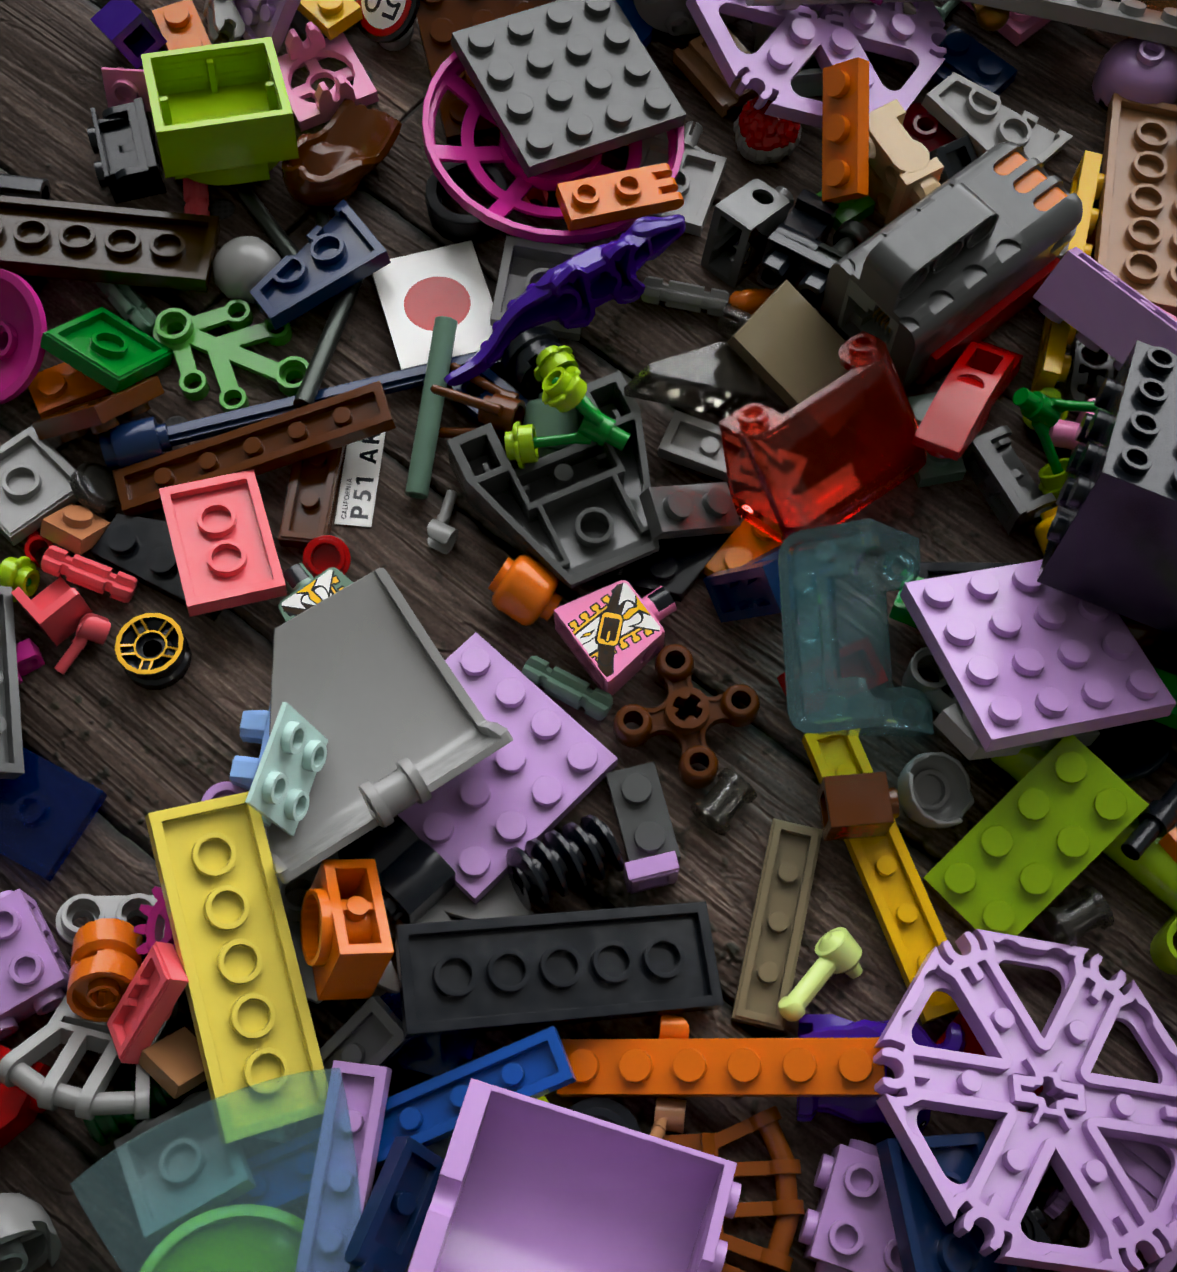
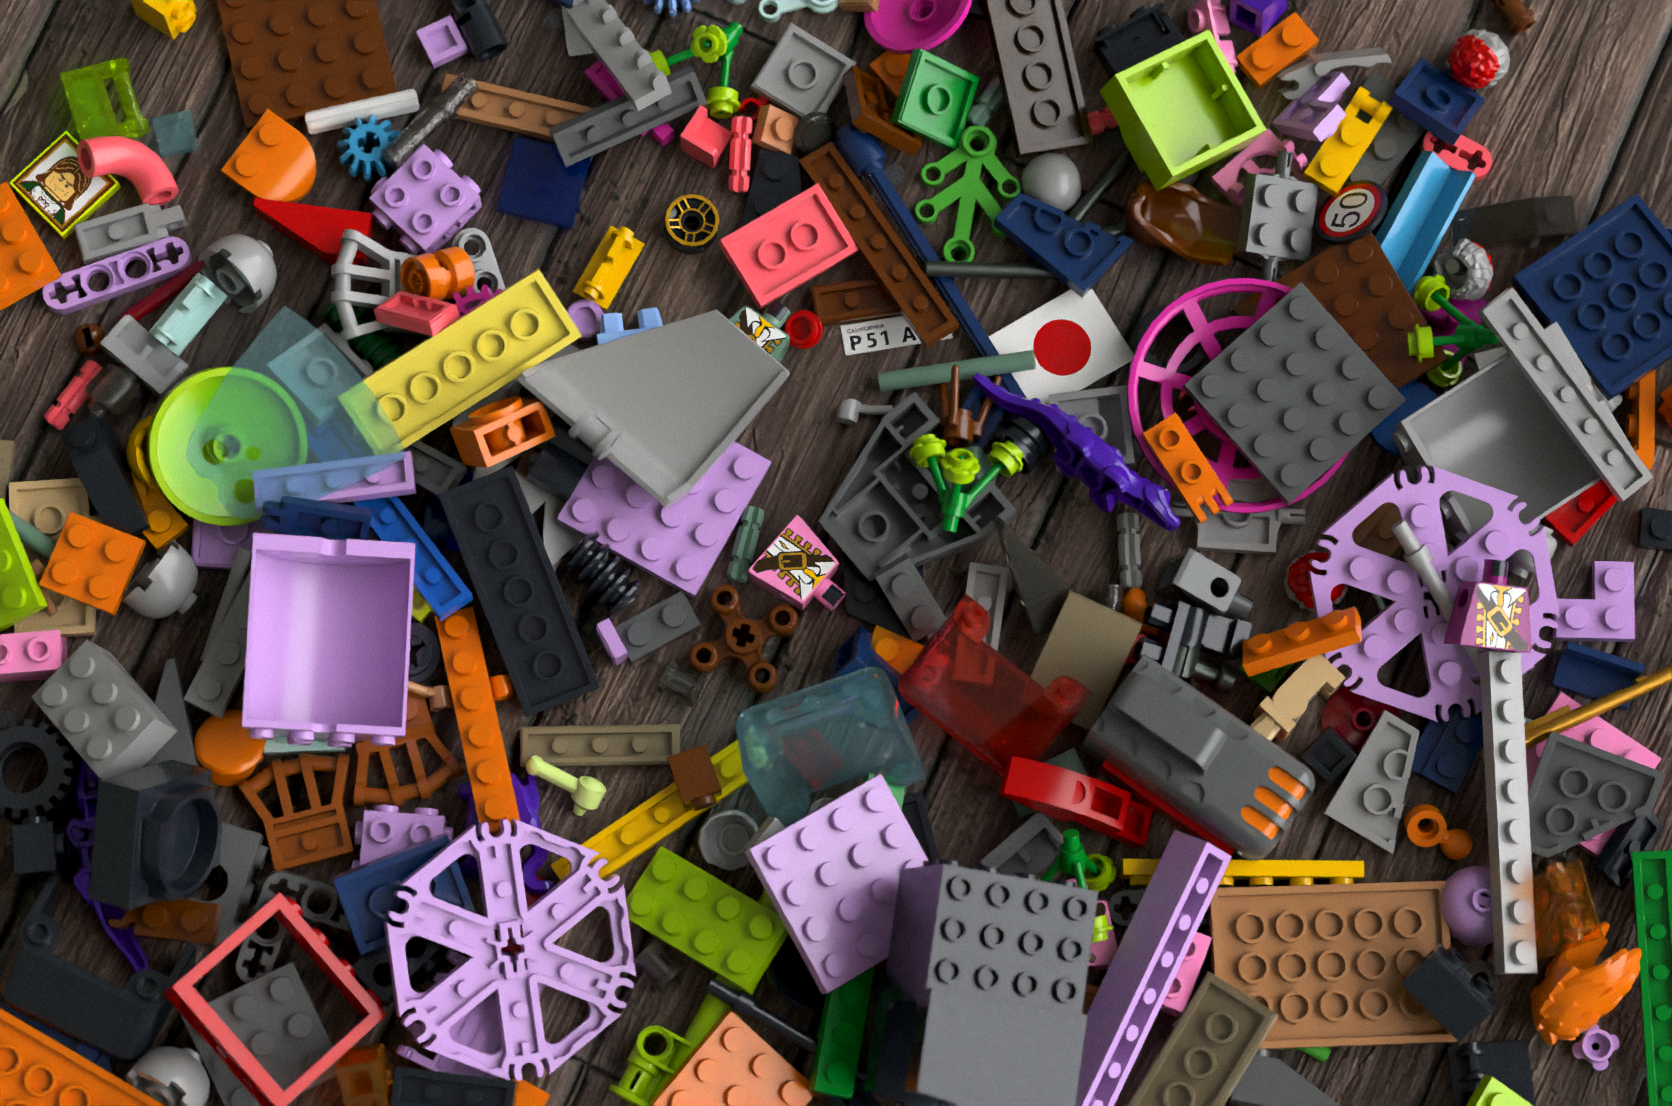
camera: 70 degrees right, 10 degrees up
(91, 628) = (697, 171): coral hand -> none
(169, 759) = (609, 266): none -> yellow hinge
(174, 1062) = (383, 345): medium nougat tile -> none
(287, 770) = (604, 355): light aqua hinge -> none
(365, 63) = (1277, 217): none -> plate
(525, 590) = (813, 488): orange head -> none
(1052, 96) = (1454, 842): none -> orange plate

